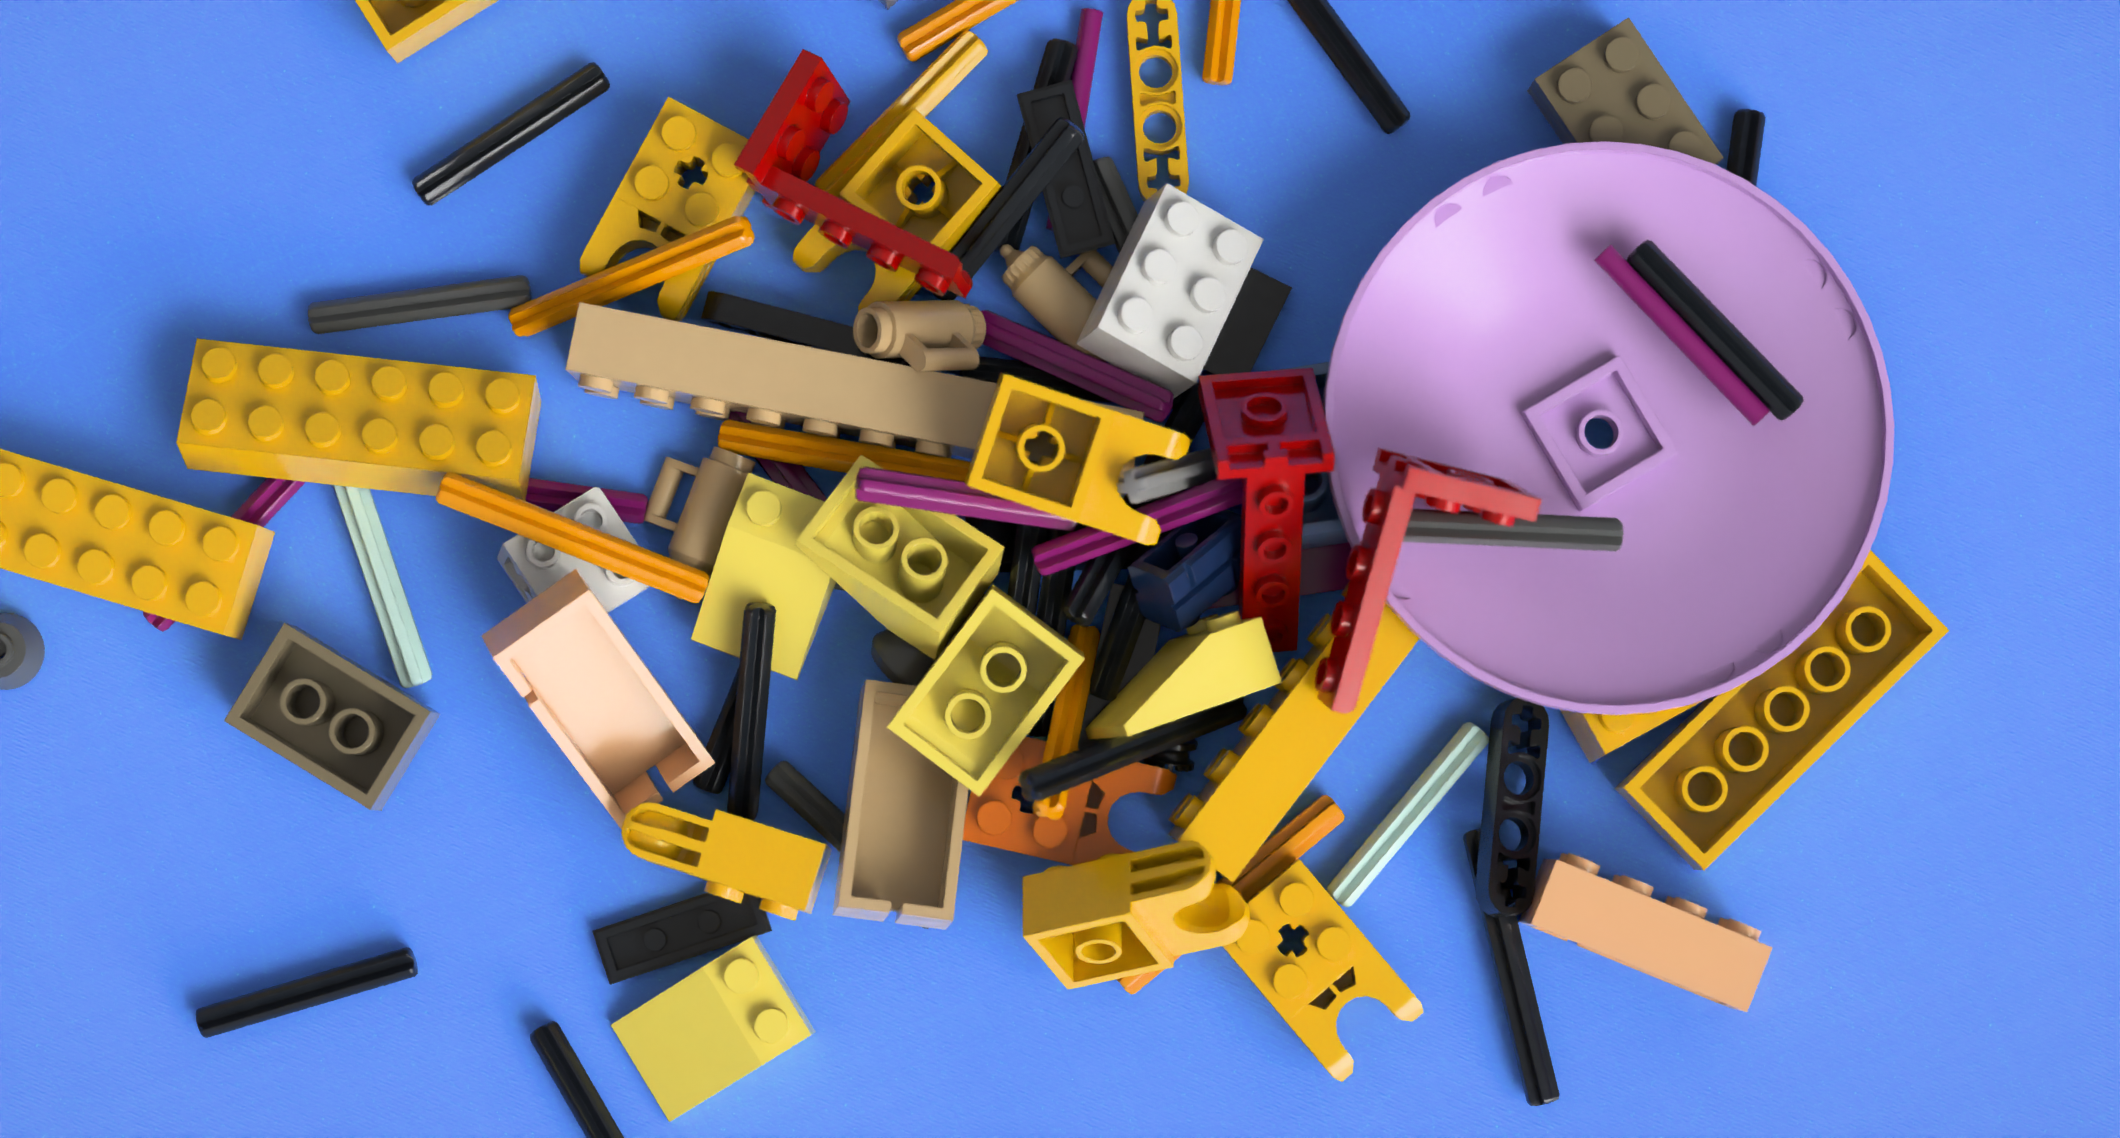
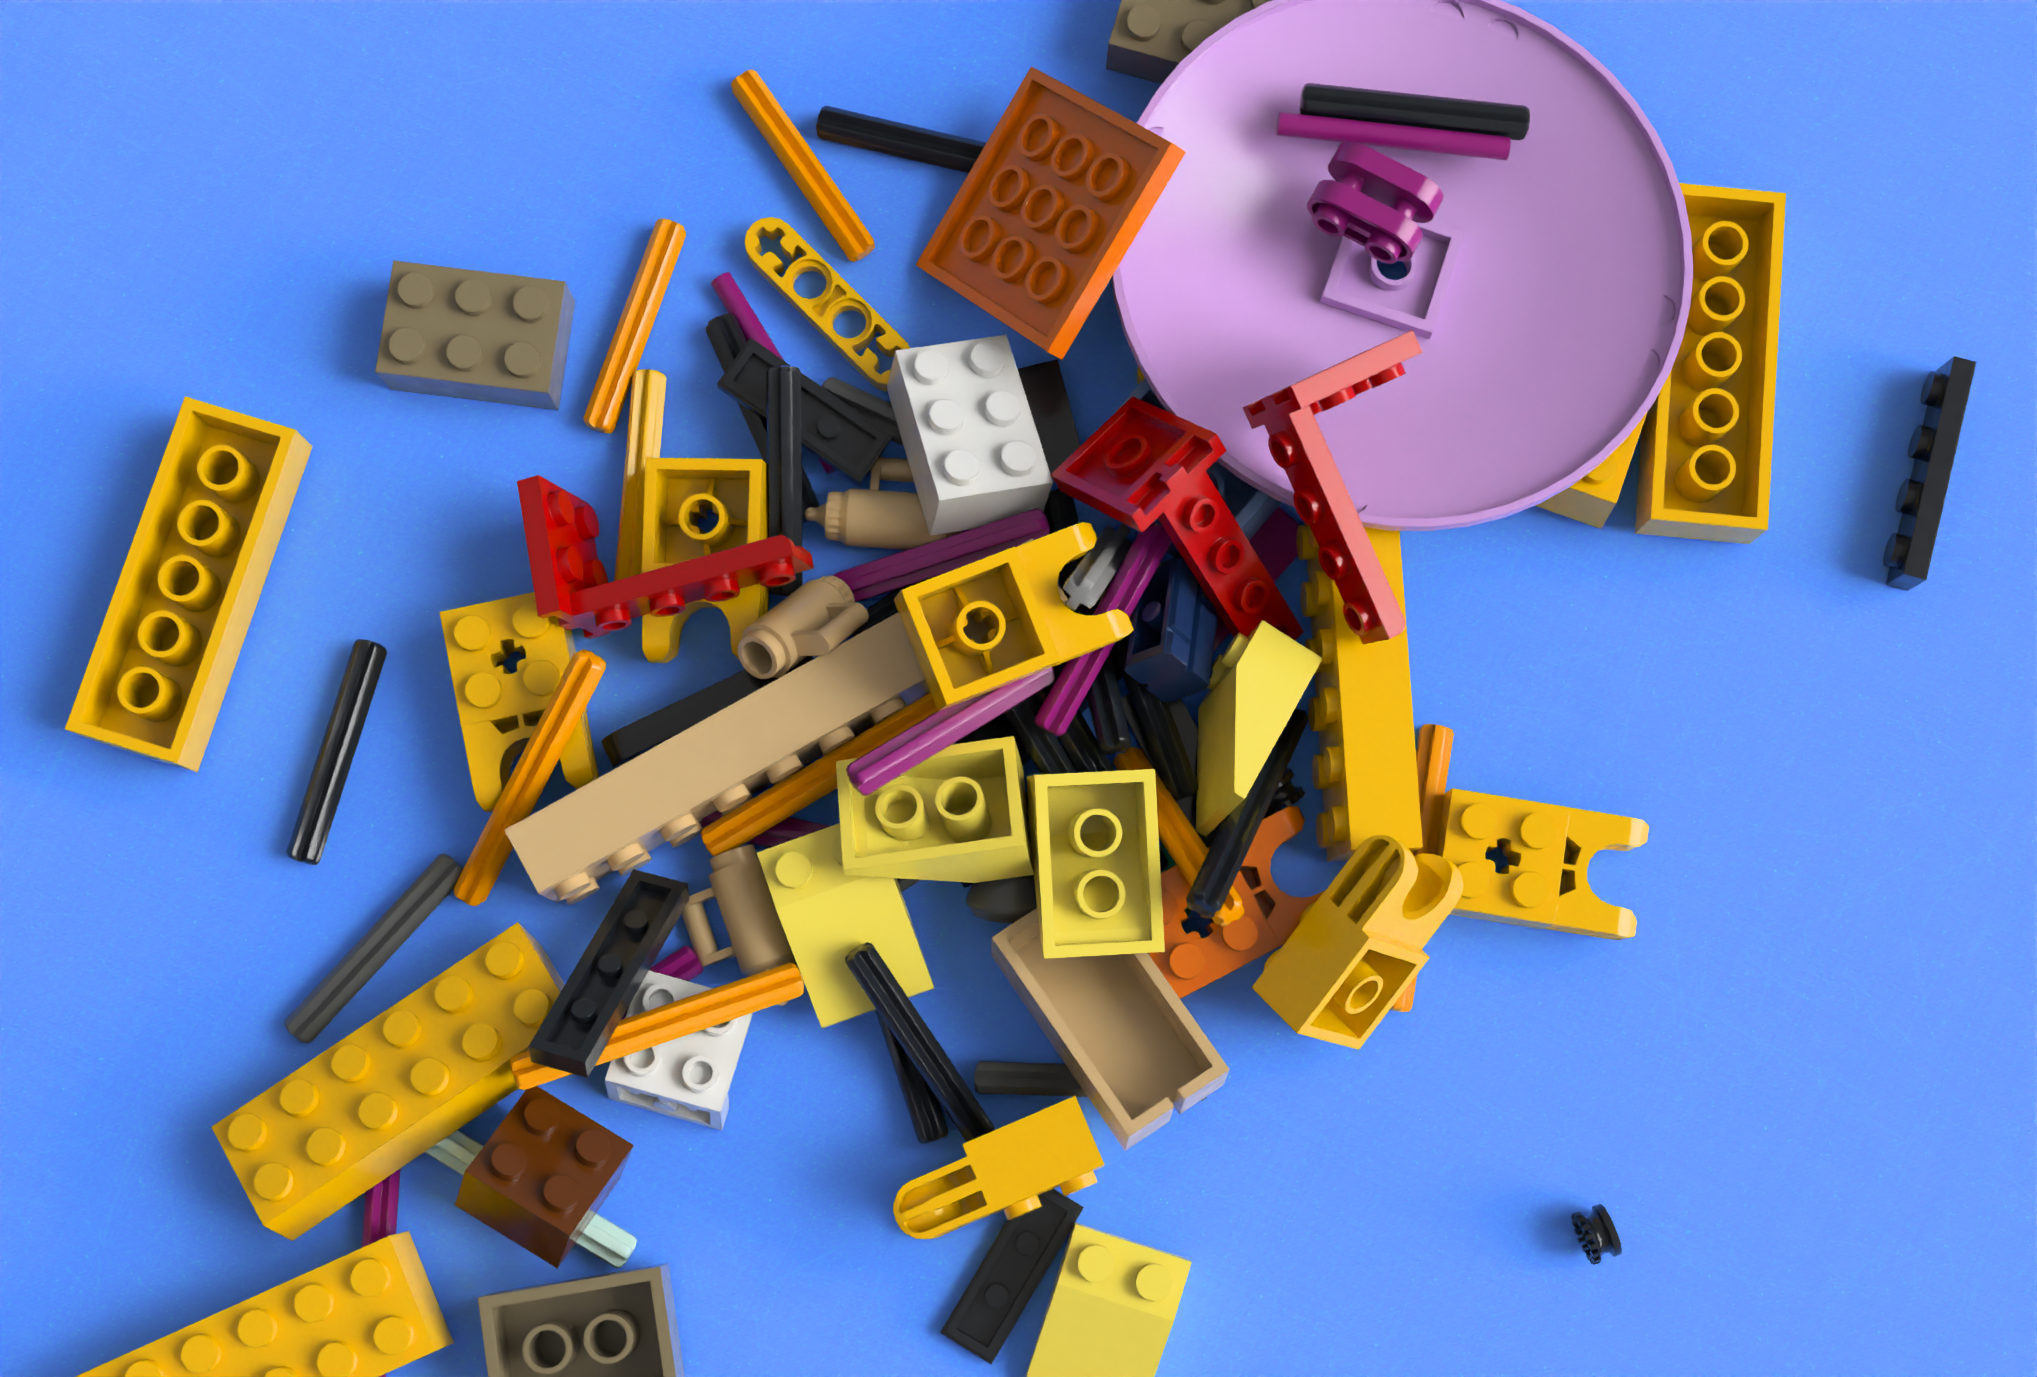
camera: 45 degrees left, 5 degrees down
(403, 575) = (543, 1175): none -> reddish brown brick
(570, 470) = (609, 973): none -> black plate
(596, 696) = (785, 1136): light nougat piece -> none
(1370, 173) = (1049, 211): none -> orange plate
(1408, 814) = (1498, 685): light aqua axle -> none
(1517, 993) = (1679, 736): black axle -> none
(1522, 809) = (1566, 614): black beam -> none
(1546, 532) = (1421, 370): dark grey axle -> none
(1604, 406) = (1374, 202): none -> magenta brick
(1646, 934) = (1765, 618): light nougat piece -> none
(1895, 919) = (1924, 494): none -> black plate

